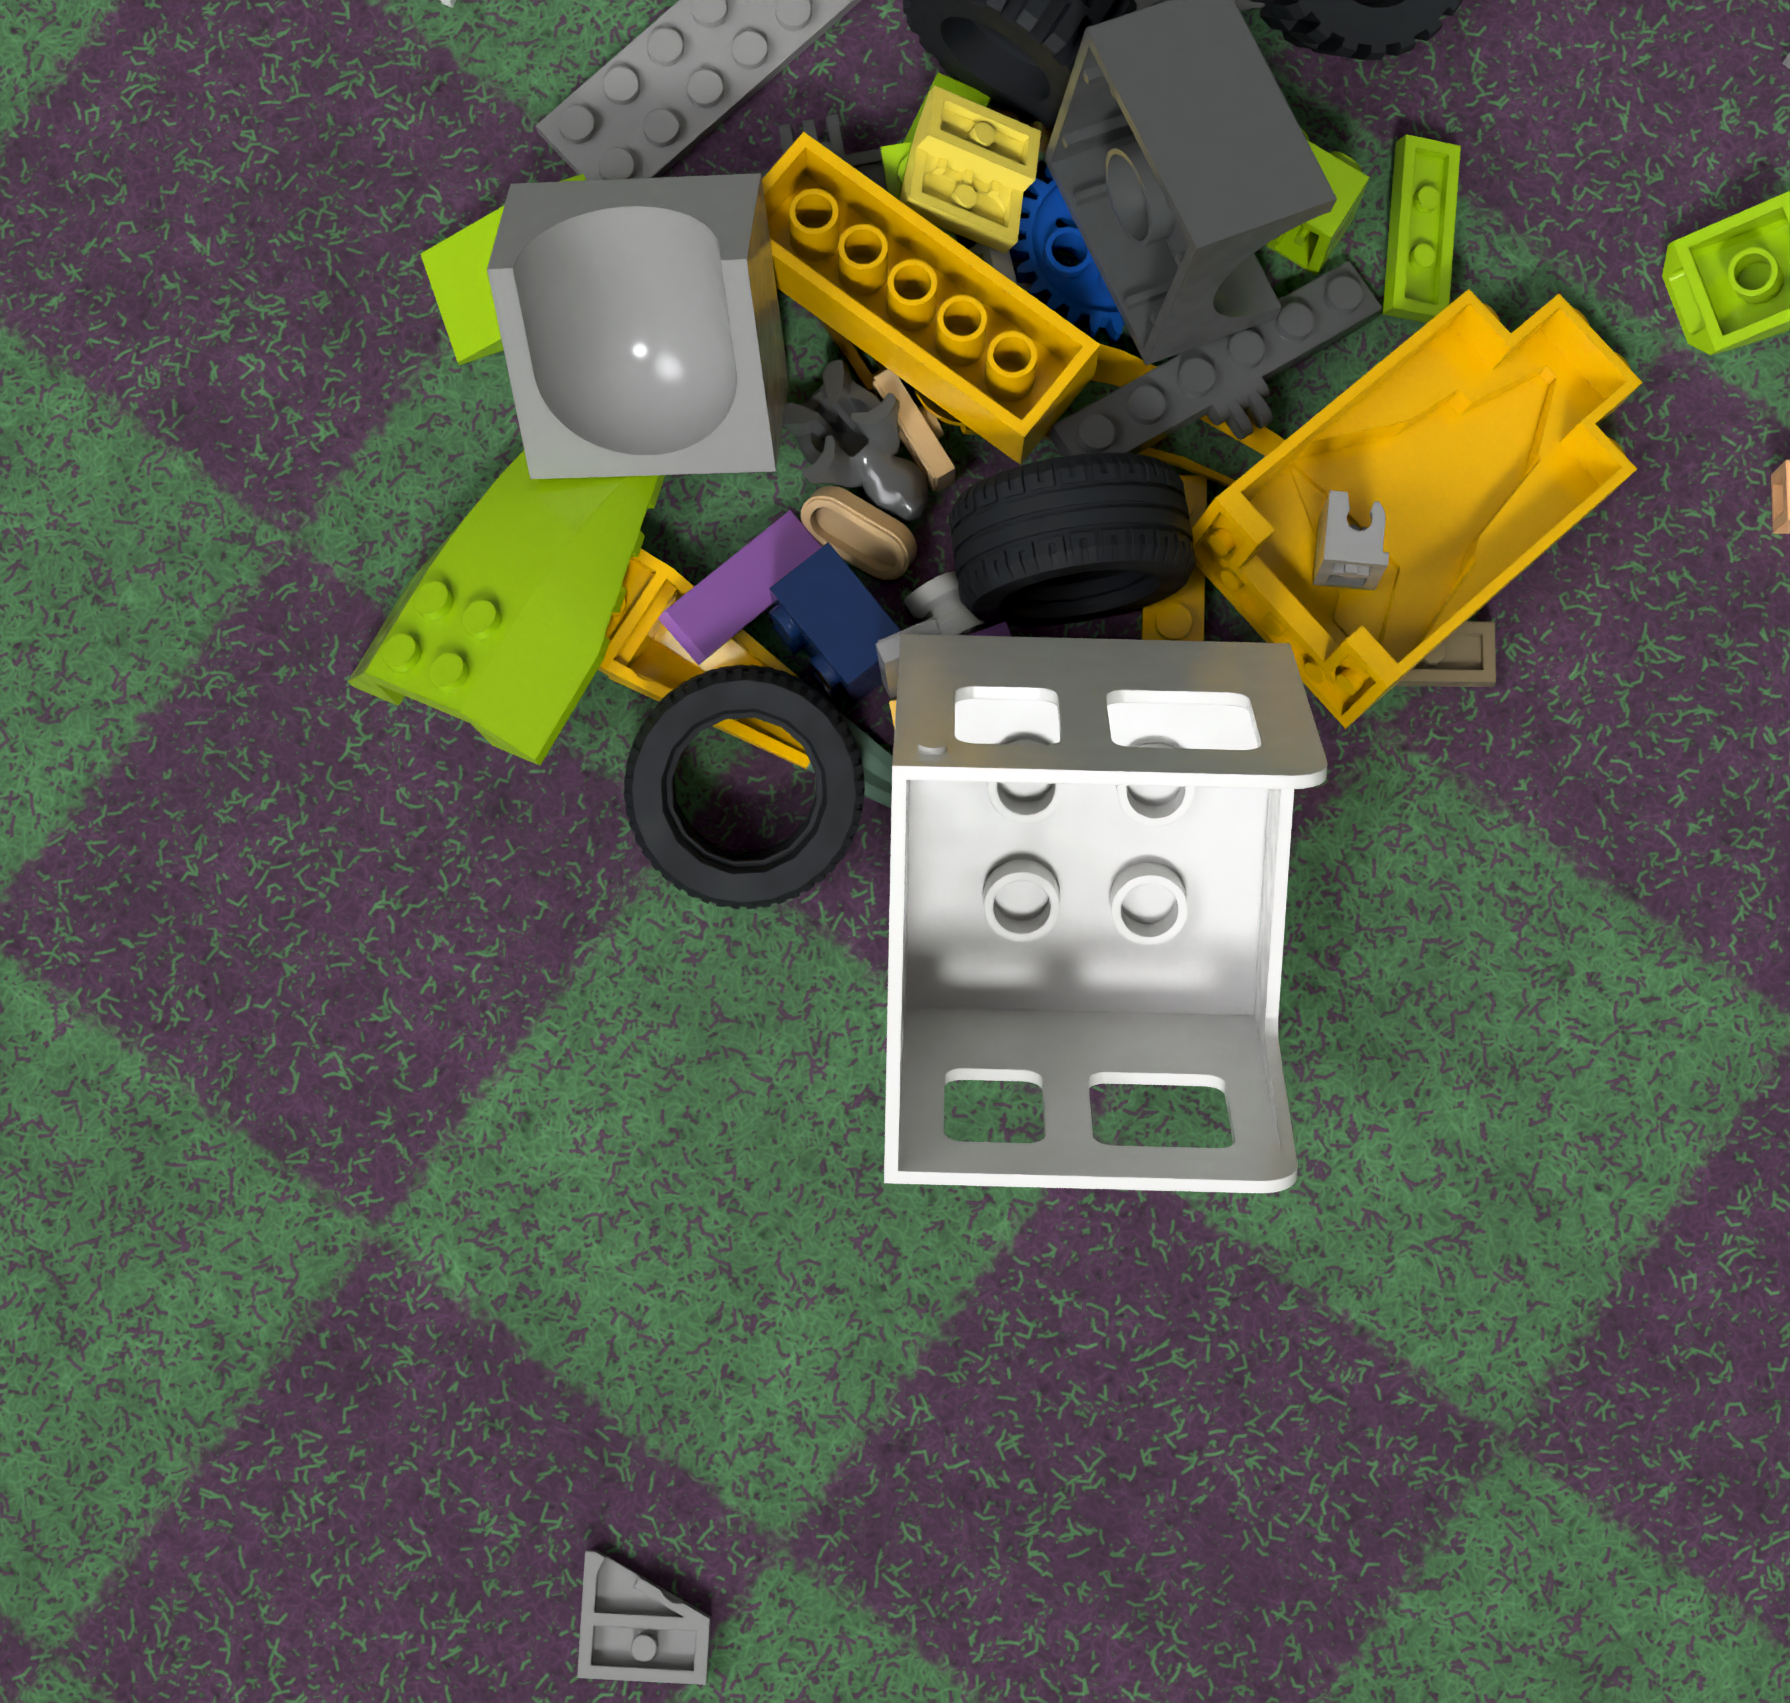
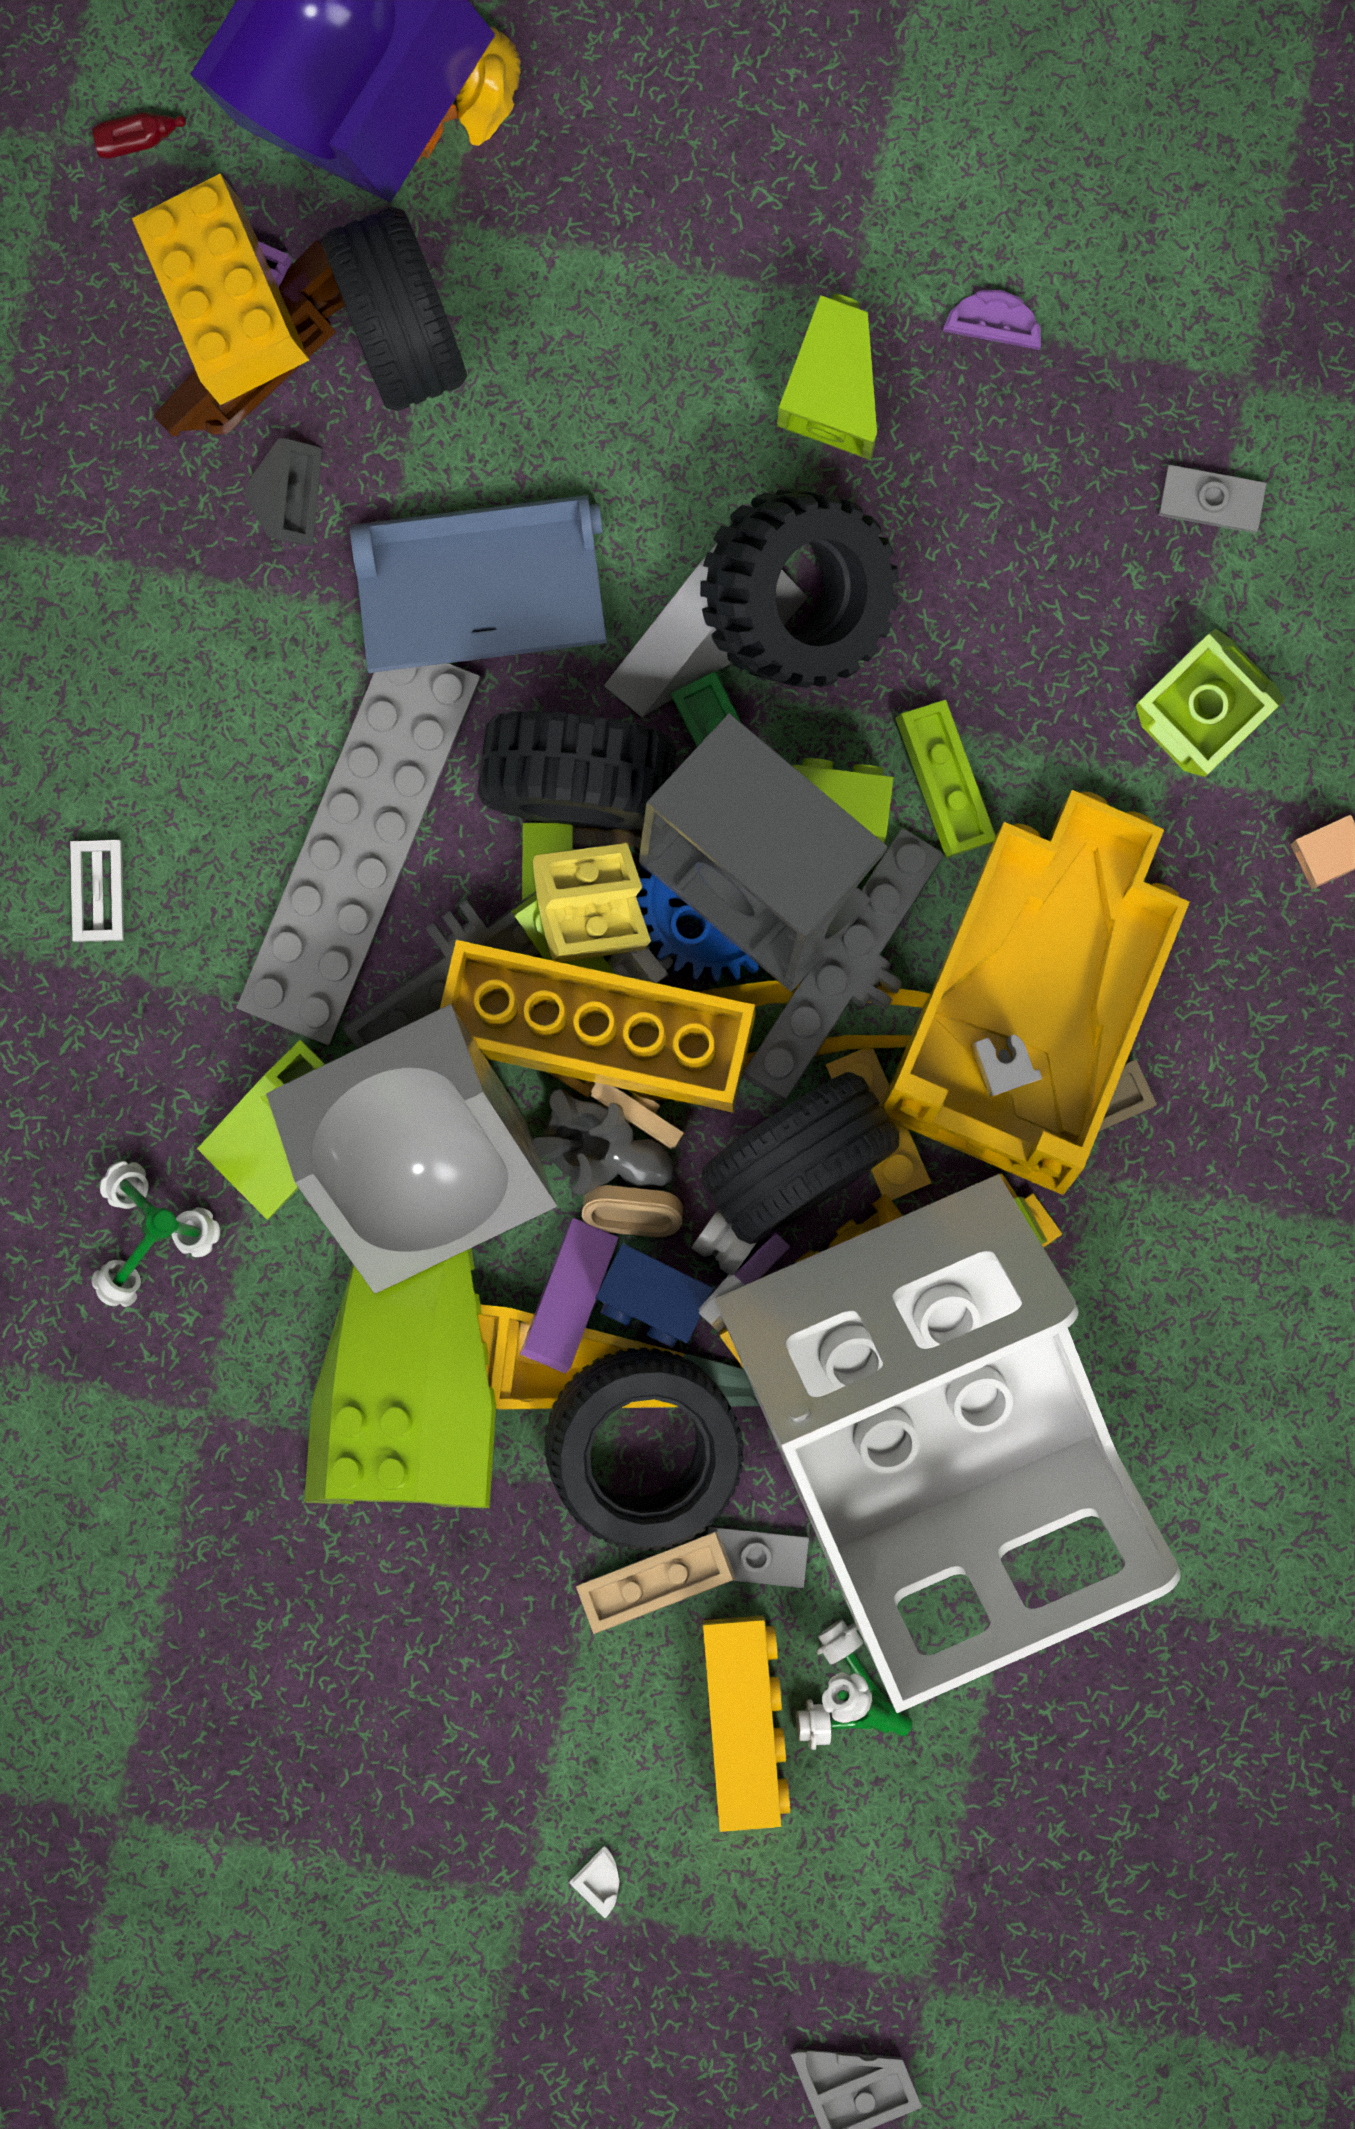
camera: 25 degrees left, 5 degrees up
(325, 260) = (191, 1232): none -> white plant
(466, 1253) = (599, 1881): none -> white tile
(689, 947) = (656, 1582): none -> tan plate
(710, 1143) = (742, 1723): none -> yellow brick
(814, 974) = (765, 1556): none -> light grey plate
(842, 1168) = (850, 1698): none -> white plant

